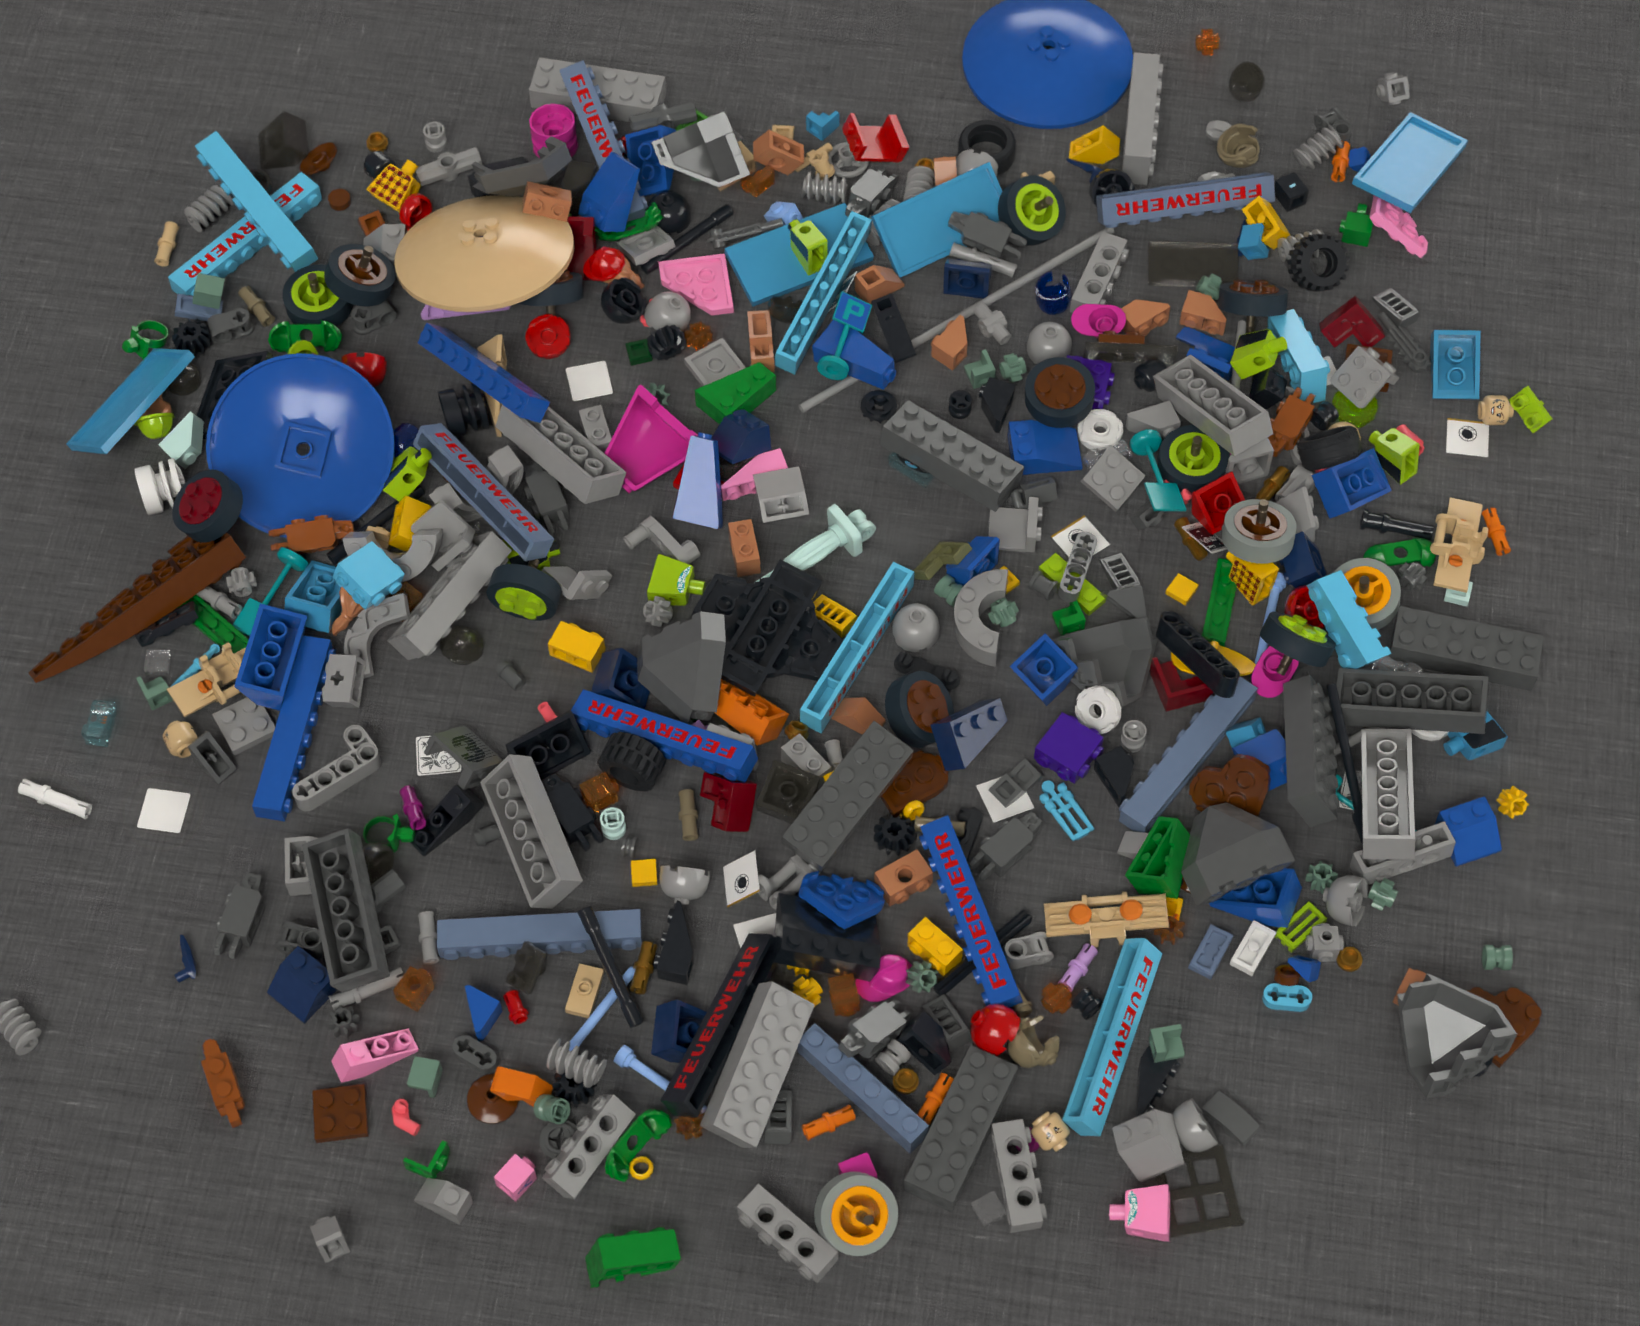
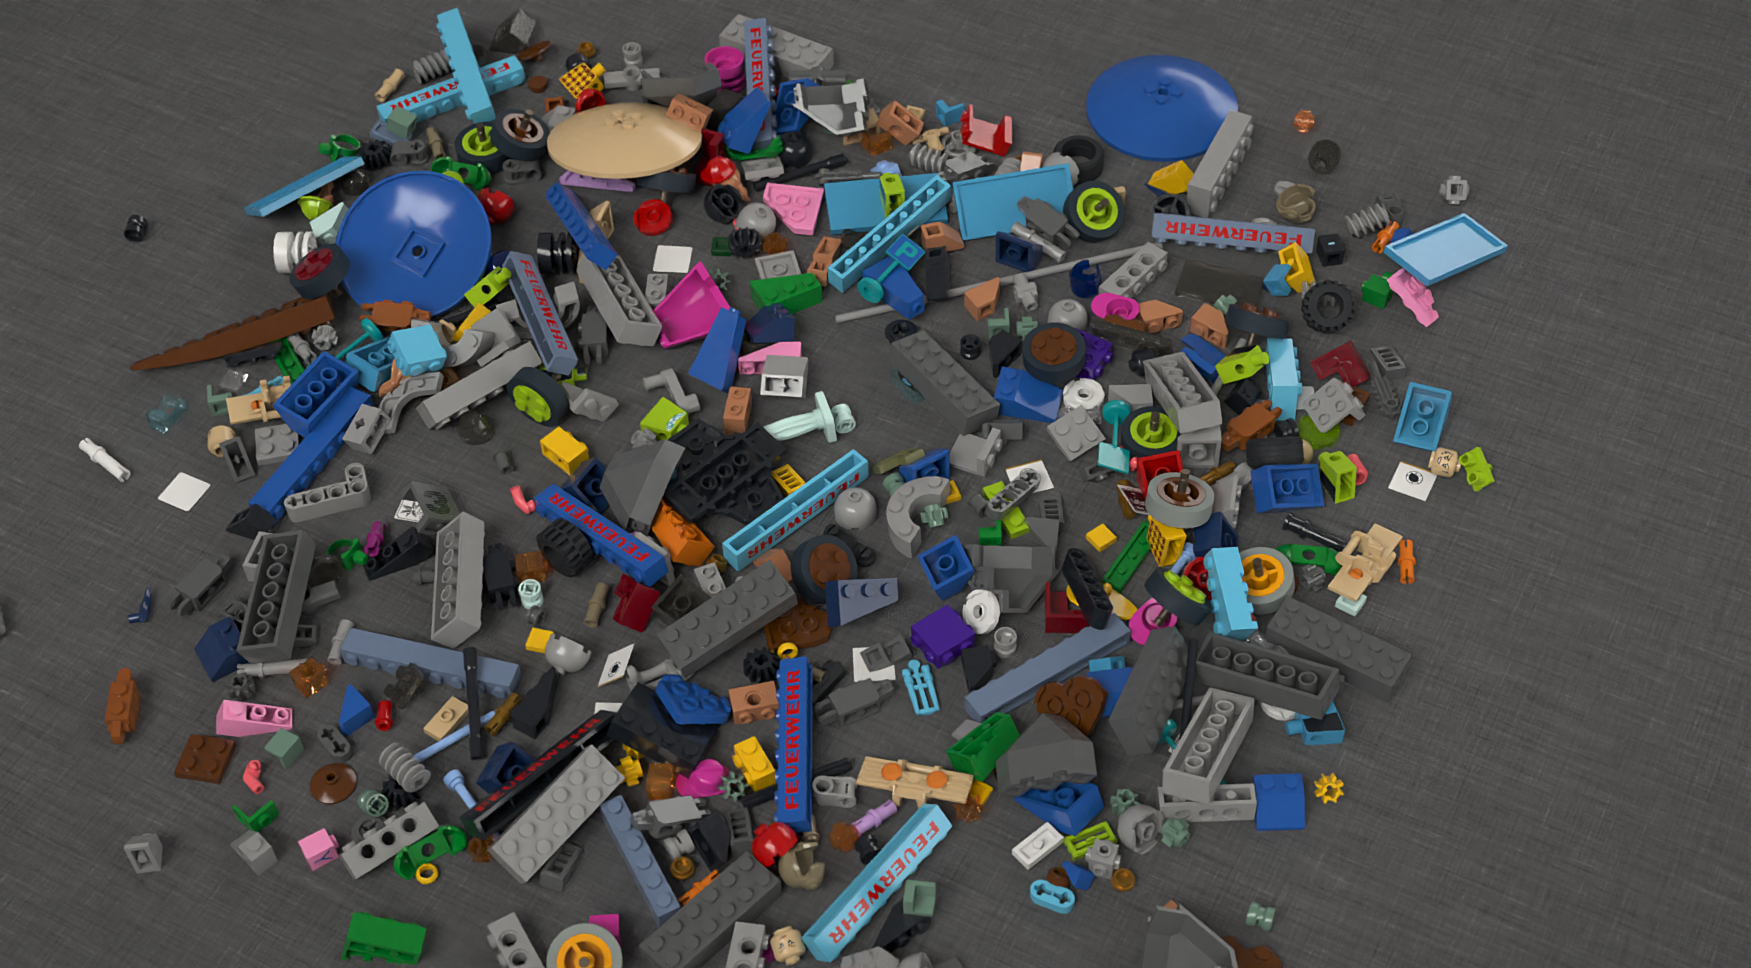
camera: 20 degrees right, 10 degrees down
(263, 828) = (251, 521): none -> black slope
(517, 1085) = (354, 775): orange slope -> none
(552, 745) = (508, 520): black slope -> none
(828, 1122) = (600, 882): orange pin -> none
(1210, 951) = (998, 838): sand blue plate -> none

